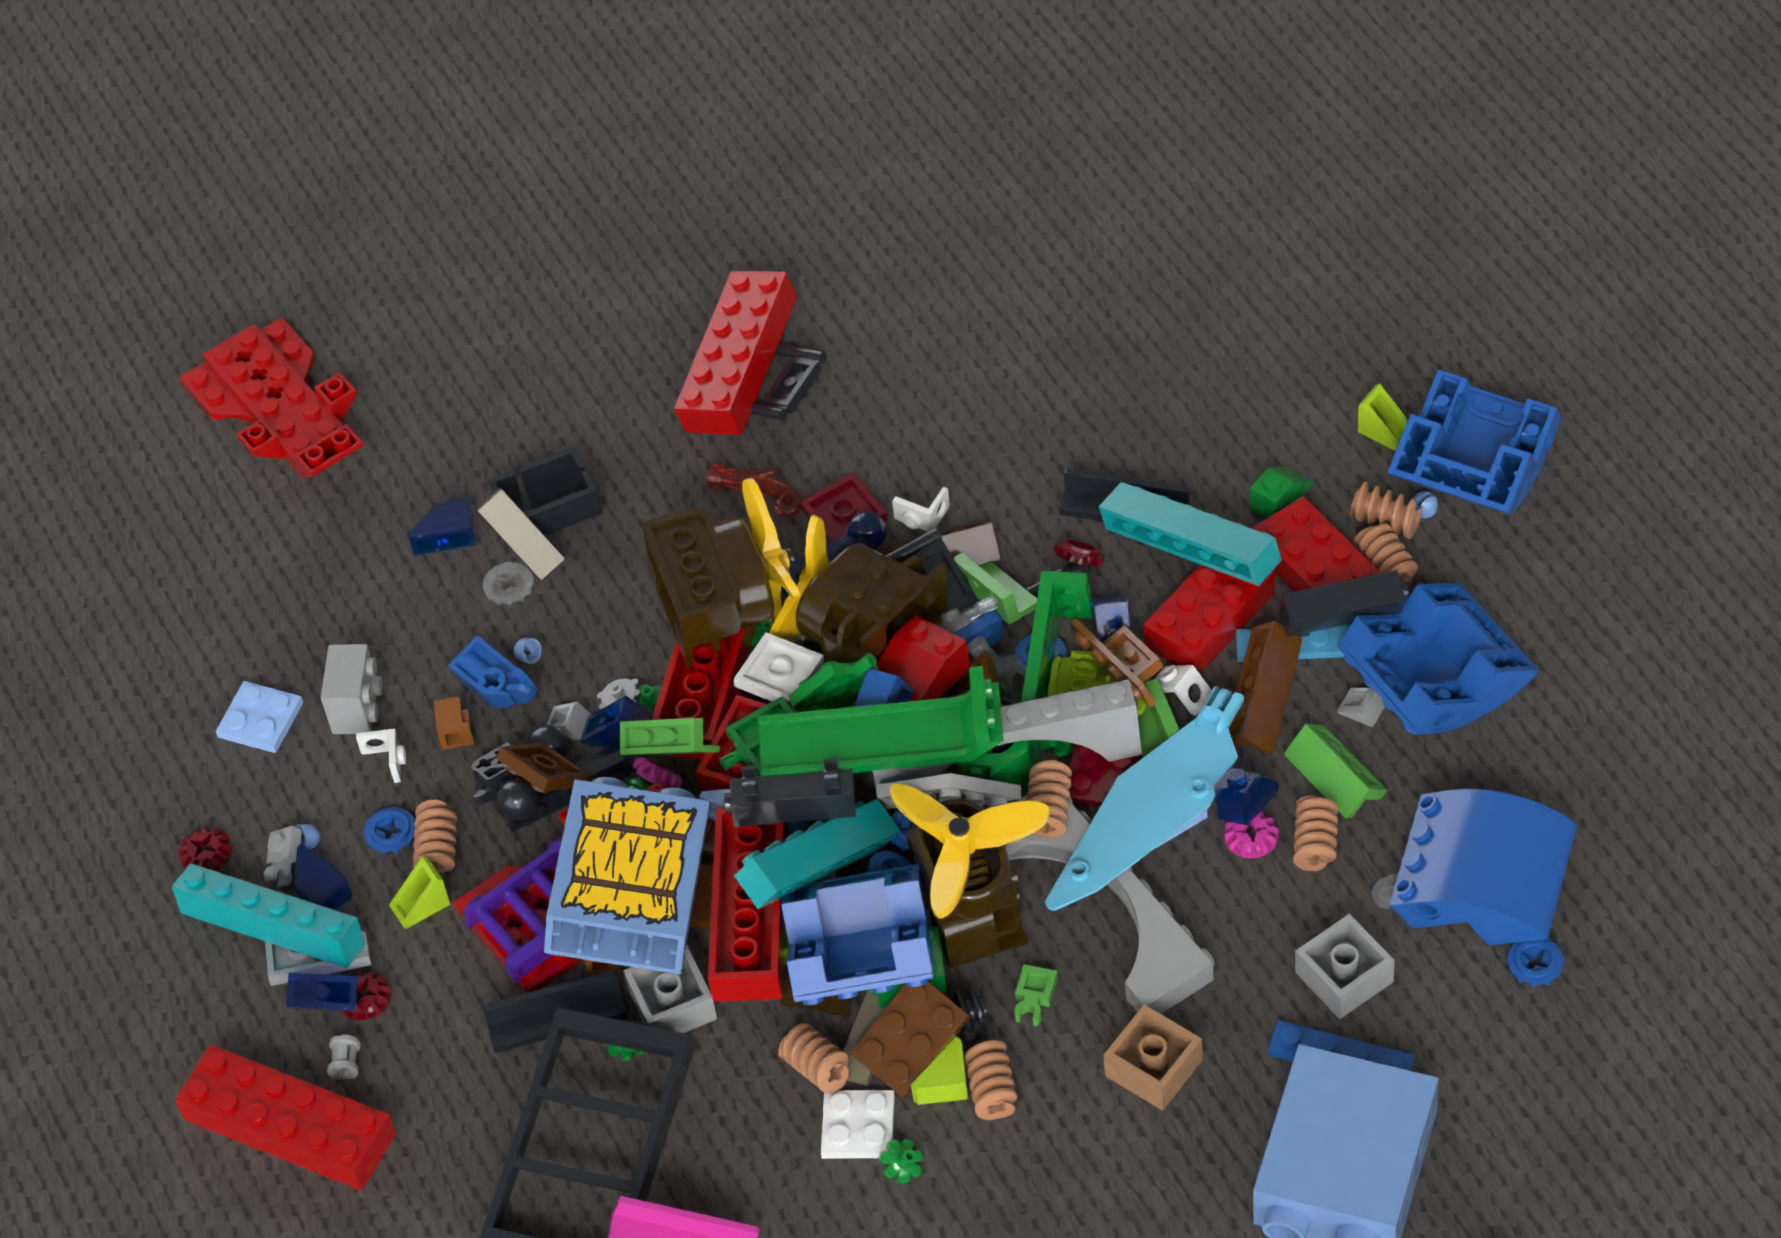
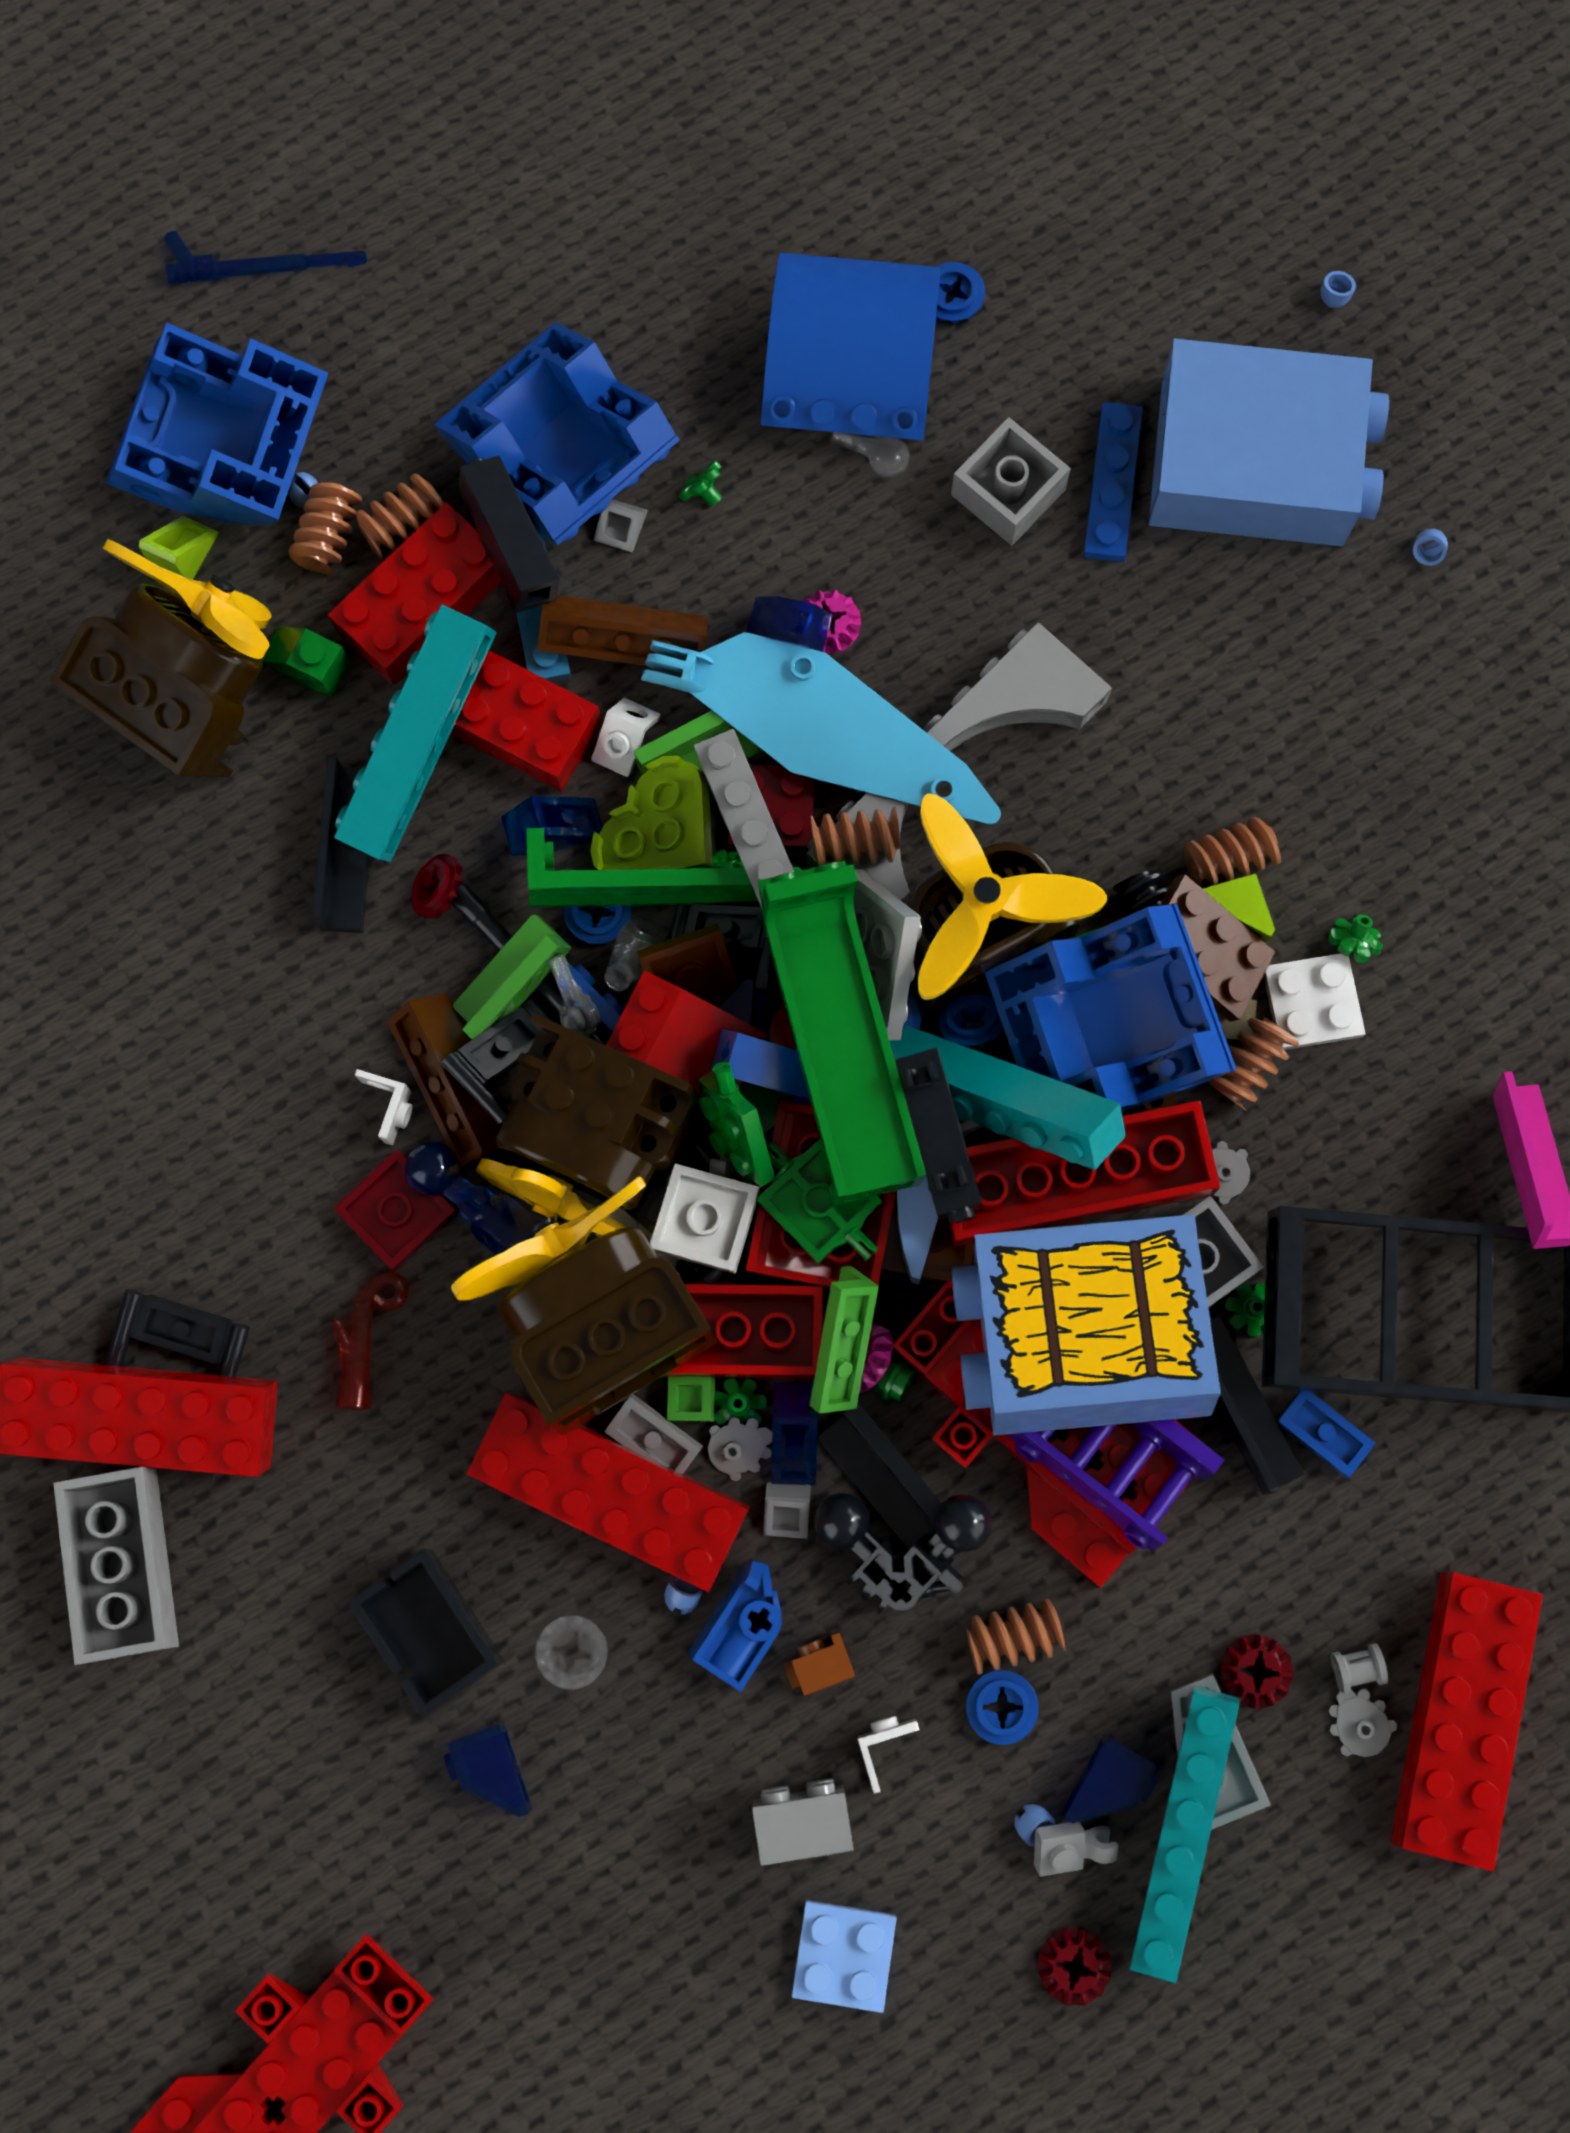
camera: 105 degrees left, 25 degrees up
(305, 1057) = (1361, 1724): none -> light grey piece
(321, 992) = (1283, 1723): clear blue slope -> none
(420, 895) = (1103, 1635): lime slope -> none
(515, 1068) = (1325, 1432): none -> blue plate
(520, 534) = (509, 1644): tile -> none
(541, 766) = (913, 1499): reddish brown plate -> none
(595, 621) = (609, 1492): none -> red brick
(639, 334) = (115, 1565): none -> light grey brick
(639, 644) = (653, 1436): none -> light grey plate
(655, 668) = (691, 1398): none -> bright green plate
(739, 1035) = (1231, 1170): none -> light grey piece
(1034, 989) = (1093, 829): bright green plate -> none
(1124, 656) = (611, 788): dark orange bracket -> none
(1153, 1057) = (1173, 671): medium nougat brick -> none
(1268, 392) = (170, 666): none -> dark brown brick
(1315, 833) = (823, 541): nougat piece -> none
(1333, 769) = (724, 538): bright green panel -> none
(1382, 759) = (703, 485): none -> green plant
(1627, 457) = (206, 267): none -> clear blue piece

